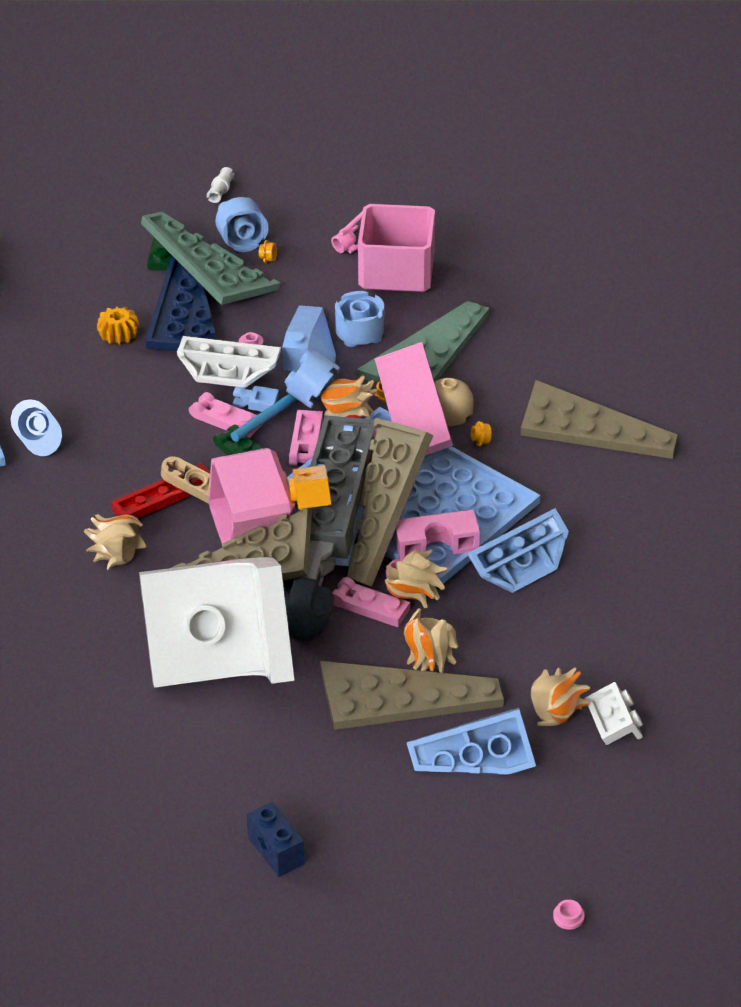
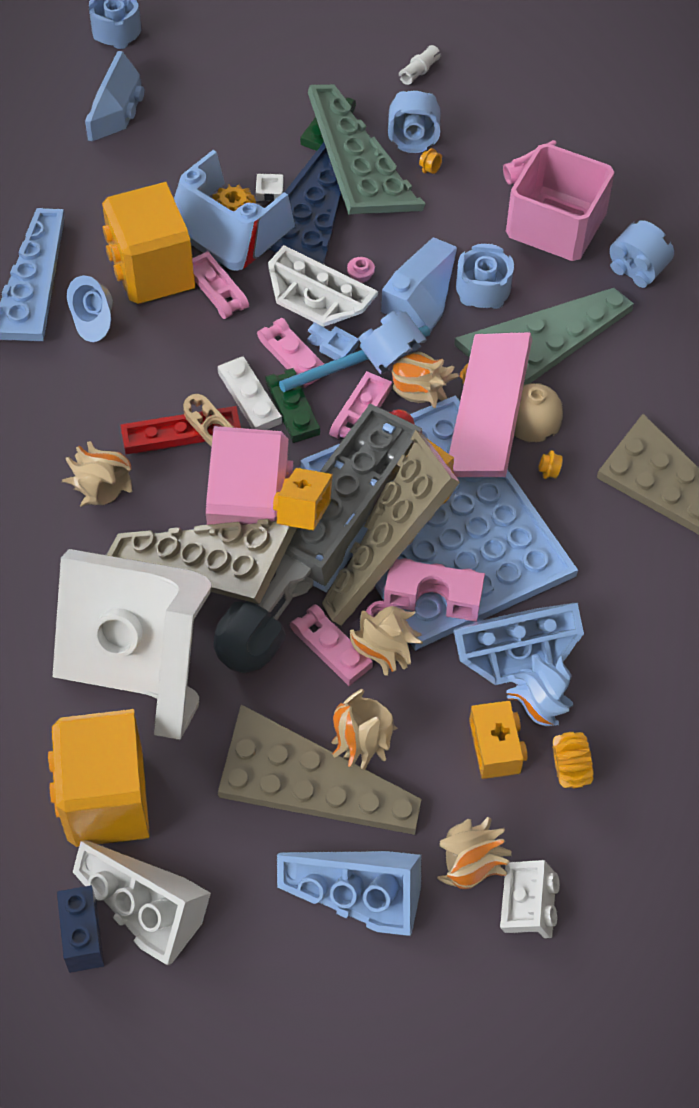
camera: 20 degrees right, 15 degrees up
(68, 363) = (148, 243): none -> light orange plate
(118, 341) = (229, 236): none -> light blue windscreen
(134, 385) = (218, 285): none -> bright pink plate
(141, 304) = (269, 186): none -> white plate
(195, 448) = (249, 394): none -> white plate
(243, 728) = (99, 778): none -> light orange plate
(320, 808) = (151, 902): none -> white wedge
(478, 268) = (641, 253): none -> light blue brick
(535, 622) = (495, 756): none -> light orange brick
(555, 578) = (542, 690): none -> light blue hair
(602, 615) = (573, 760): none -> light orange gear

